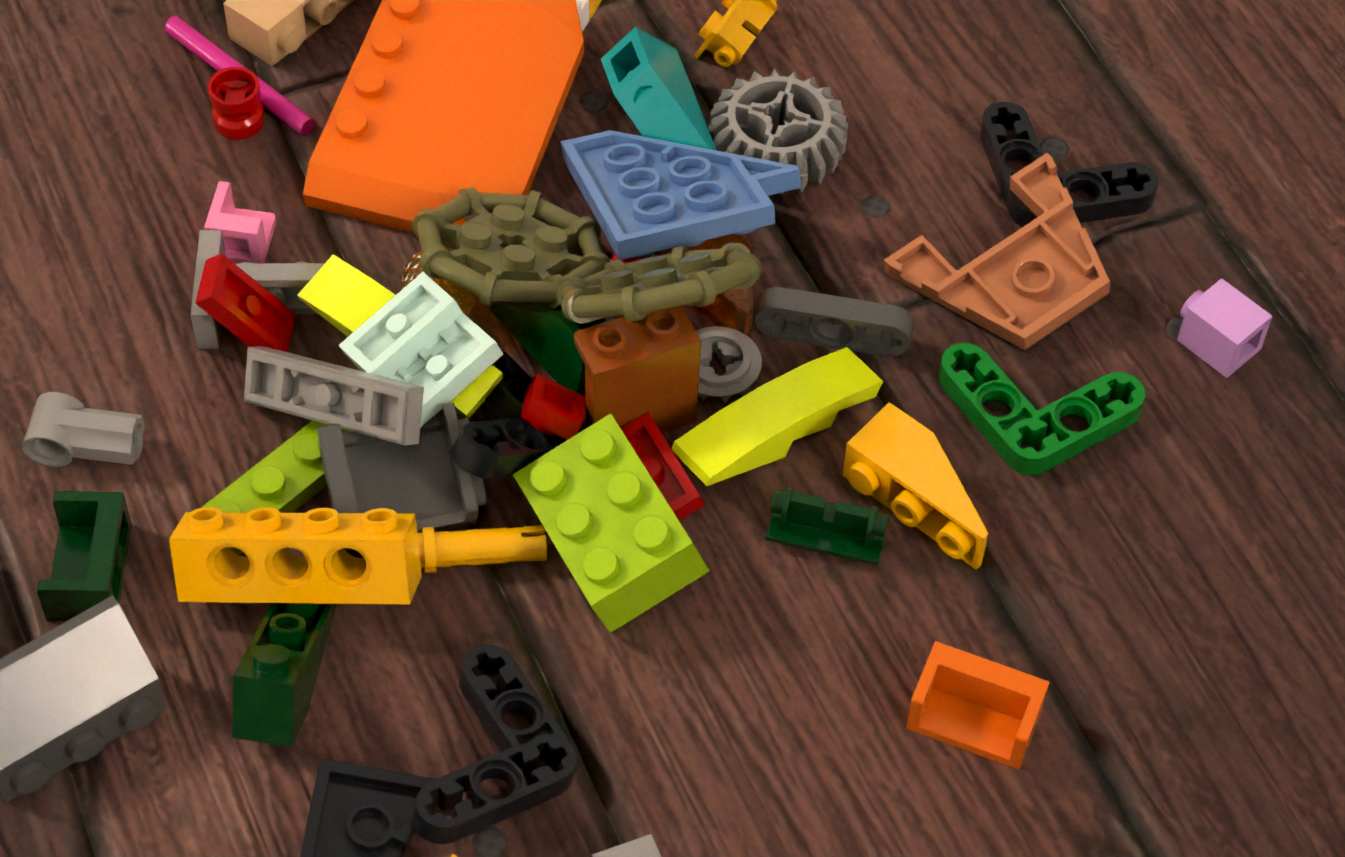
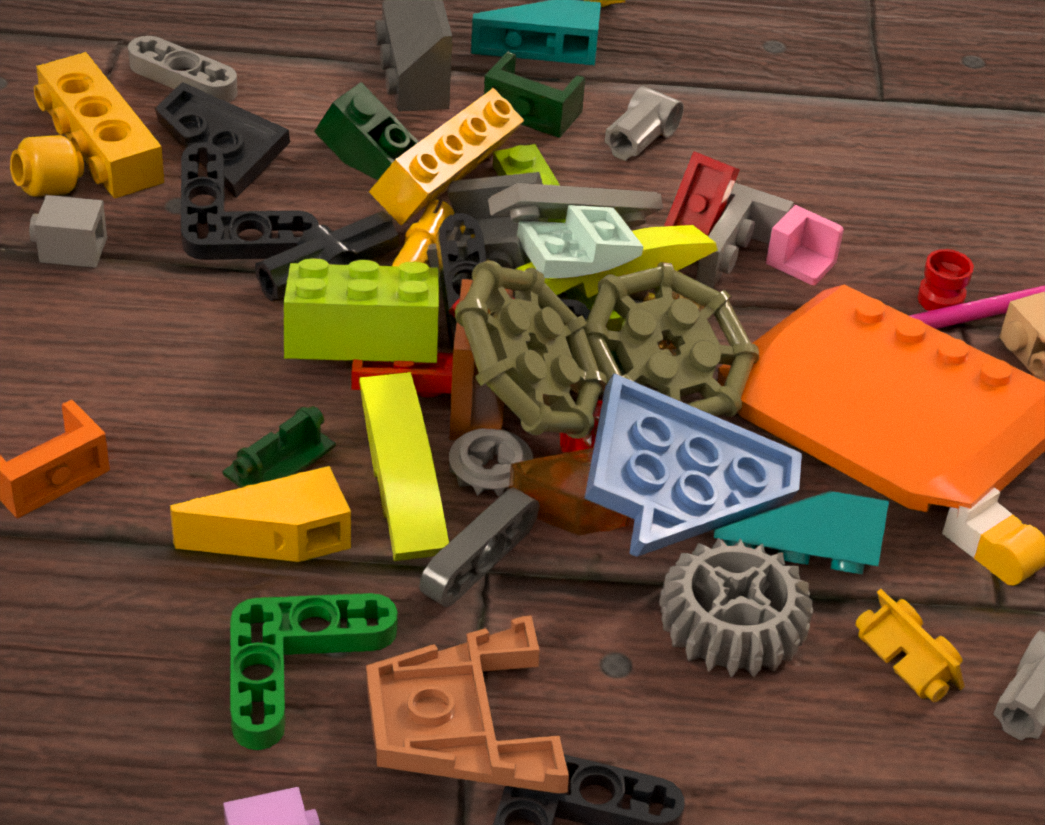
camera: 115 degrees right, 10 degrees down
(514, 620) = (354, 242): none -> black piece

